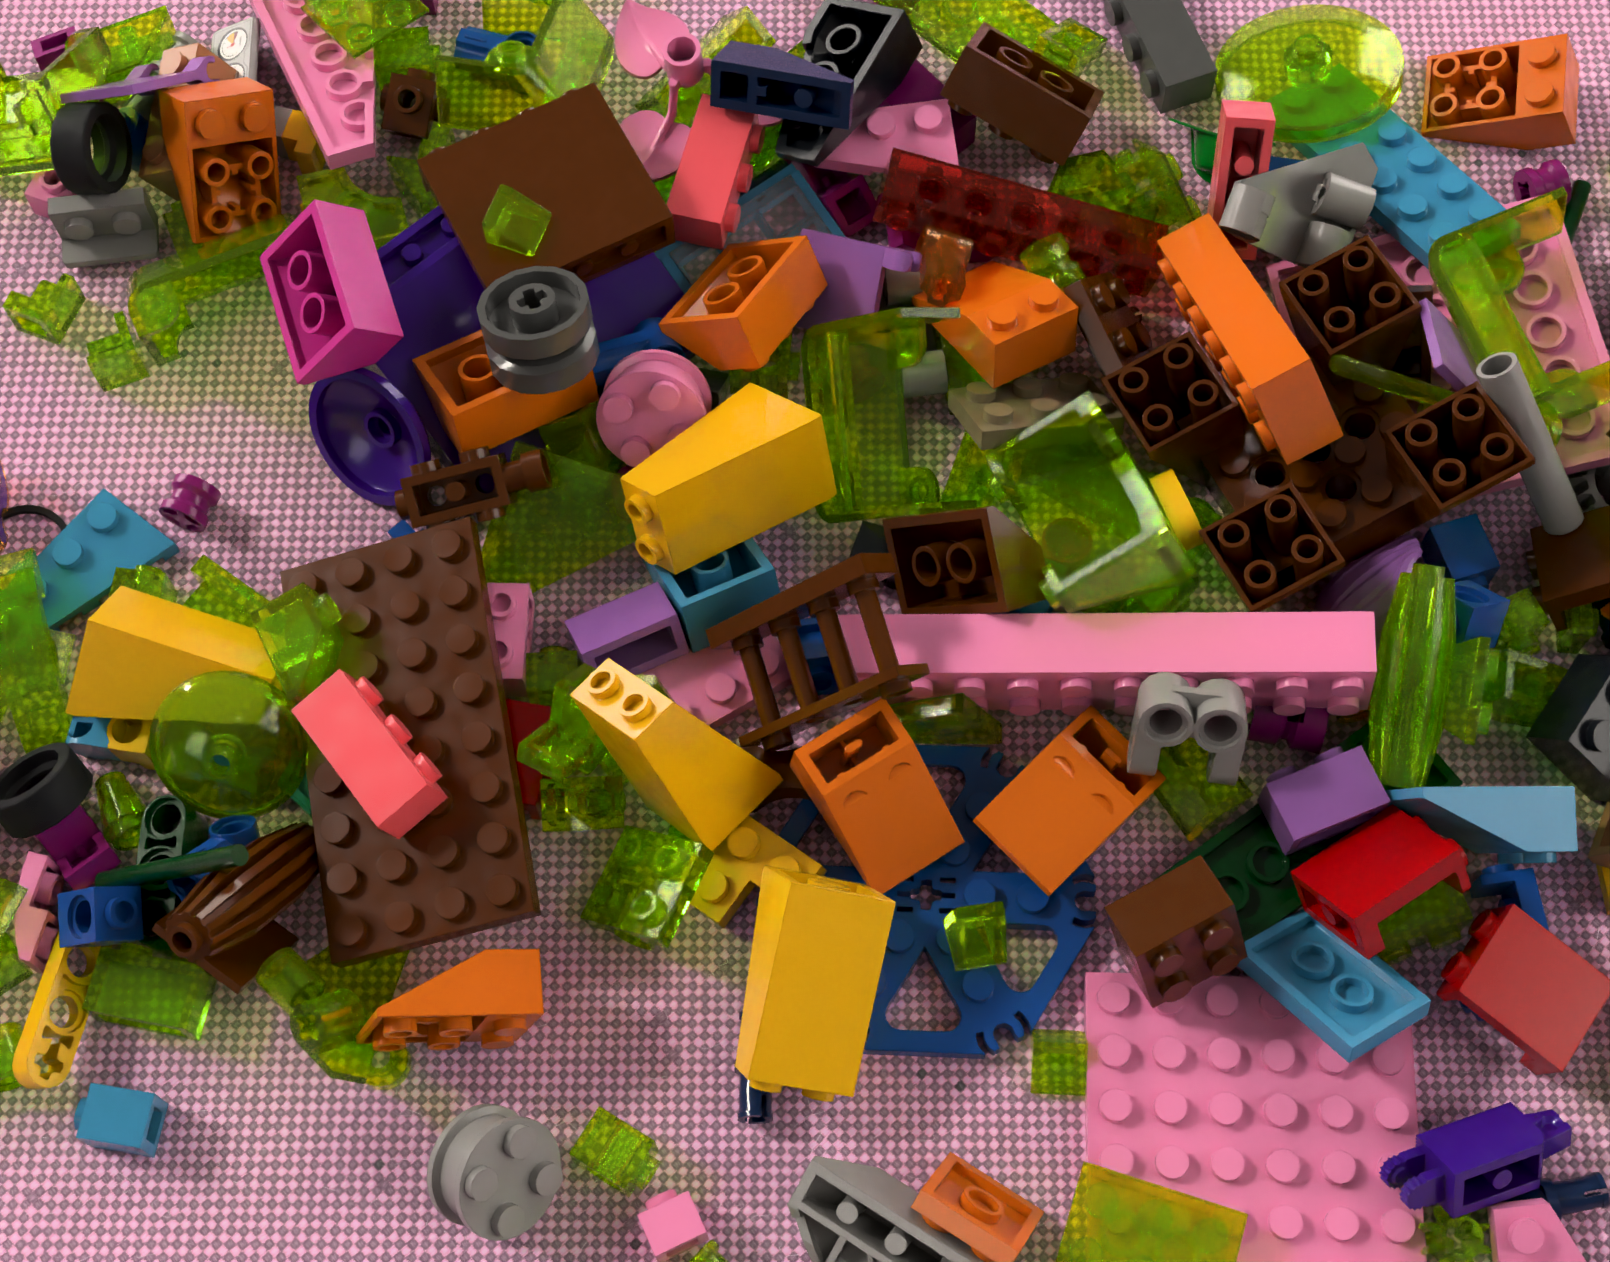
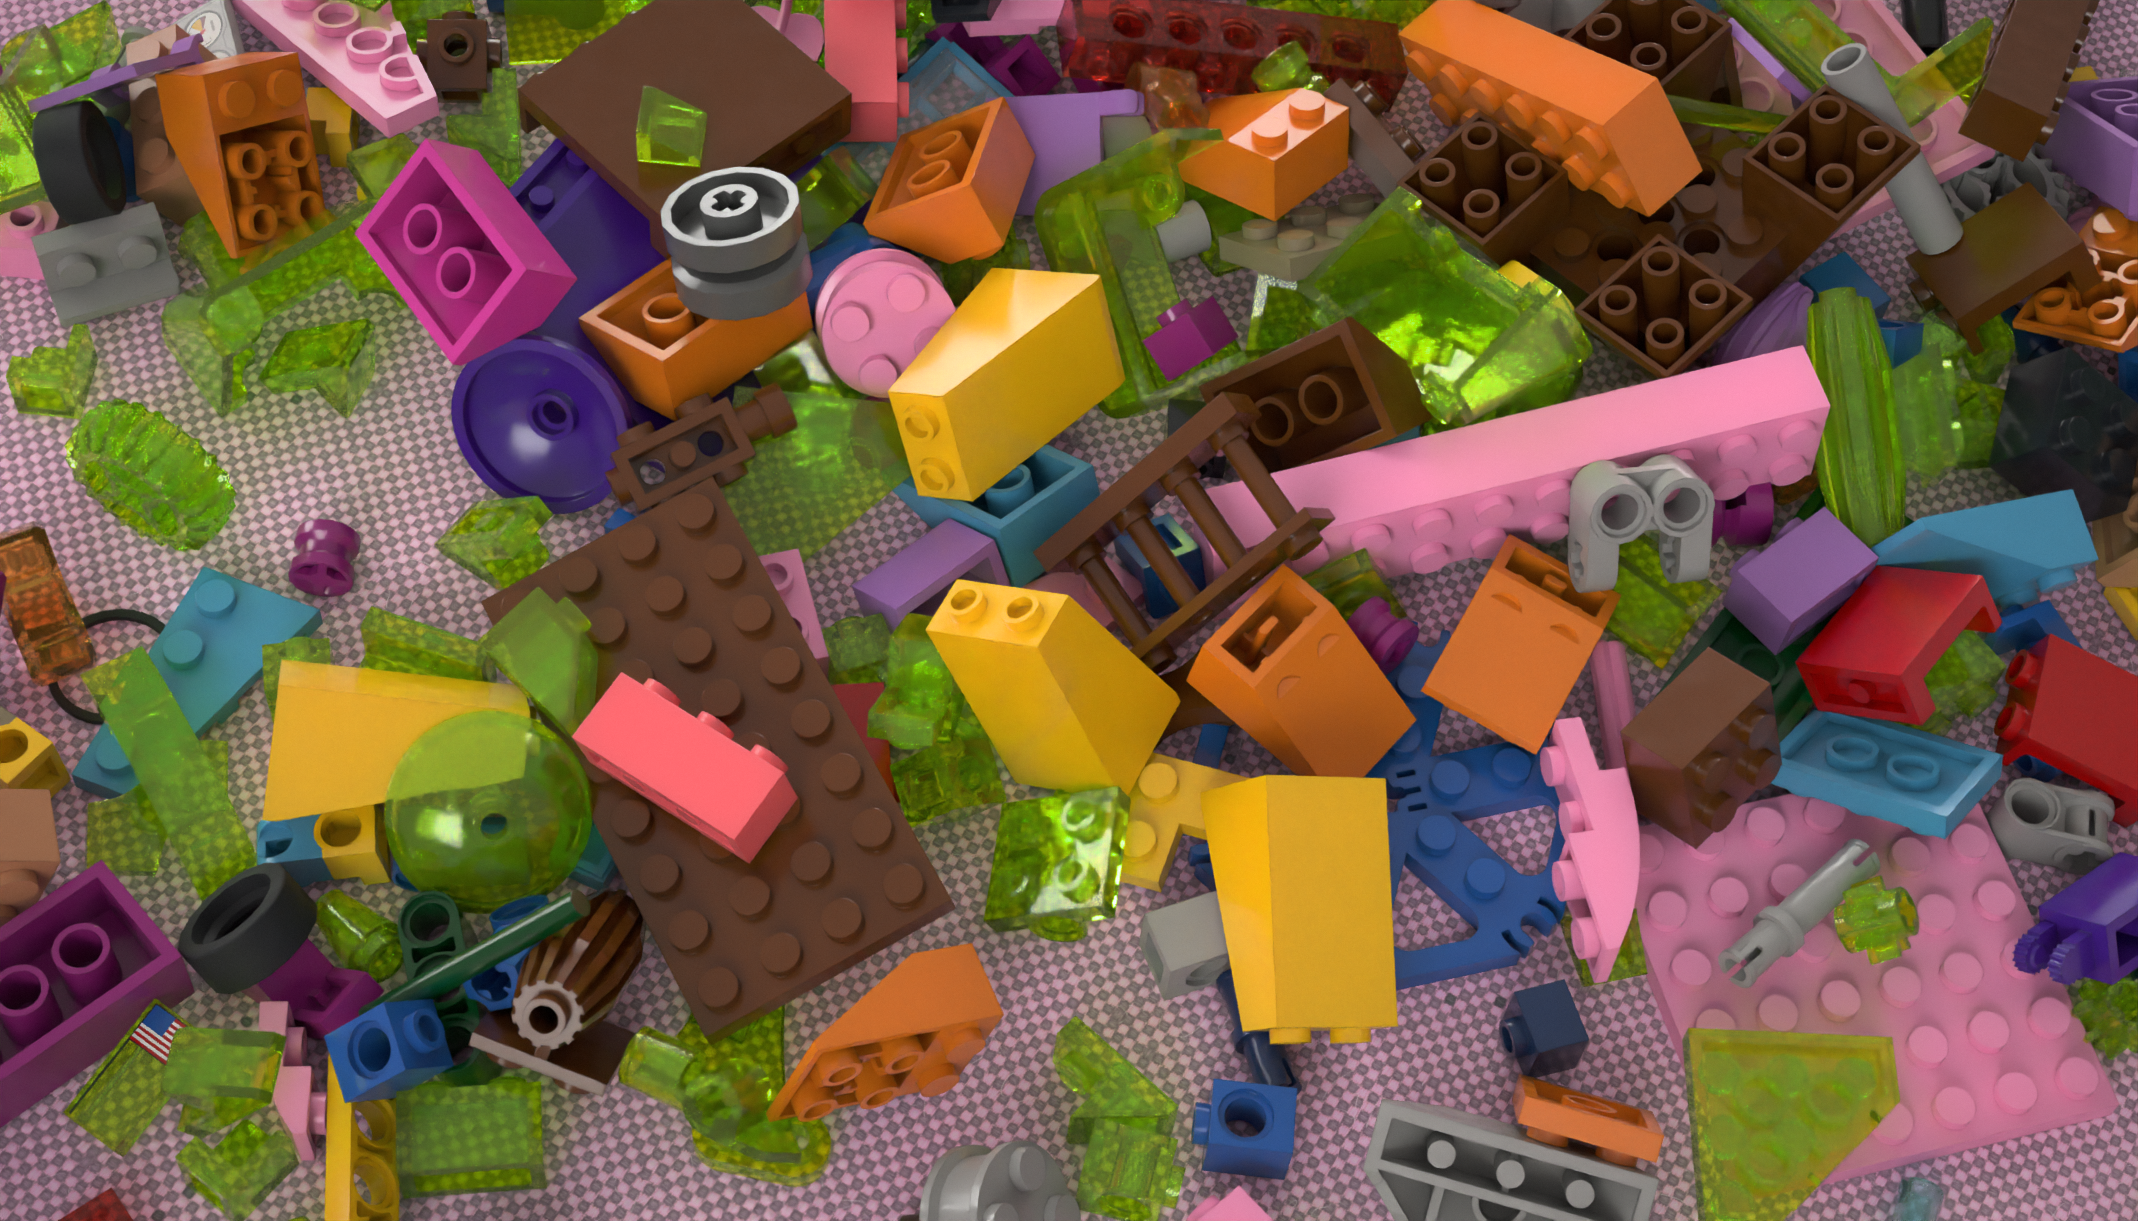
camera: 25 degrees left, 10 degrees down
(77, 411) = (150, 474): none -> clear neon green gear
(118, 357) = (179, 398): clear neon green panel -> none
(239, 341) = (330, 358): none -> clear neon green slope
(321, 519) = (498, 539): none -> clear neon green slope
(628, 1095) = (1114, 1086): none -> clear neon green slope
(640, 293) = (833, 194): none -> clear neon green slope
(721, 979) = (1185, 945): none -> light grey brick
(731, 1161) = (1266, 1108): none -> blue brick
(896, 471) = (1189, 336): none -> magenta plate
(959, 763) = (1382, 633): none -> magenta wheel
(976, 1124) = (1543, 1030): none -> dark blue plate
(977, 935) = (1468, 817): clear neon green slope -> none
(1064, 1003) = (1601, 845): none -> bright pink slope
(1141, 856) = (1613, 698): none -> bright pink axle
(1196, 1095) = (1782, 928): none -> light grey pin
(1273, 1111) = (1876, 920): none -> clear neon green gear
(1477, 1065) = (2059, 825): none -> light grey piece

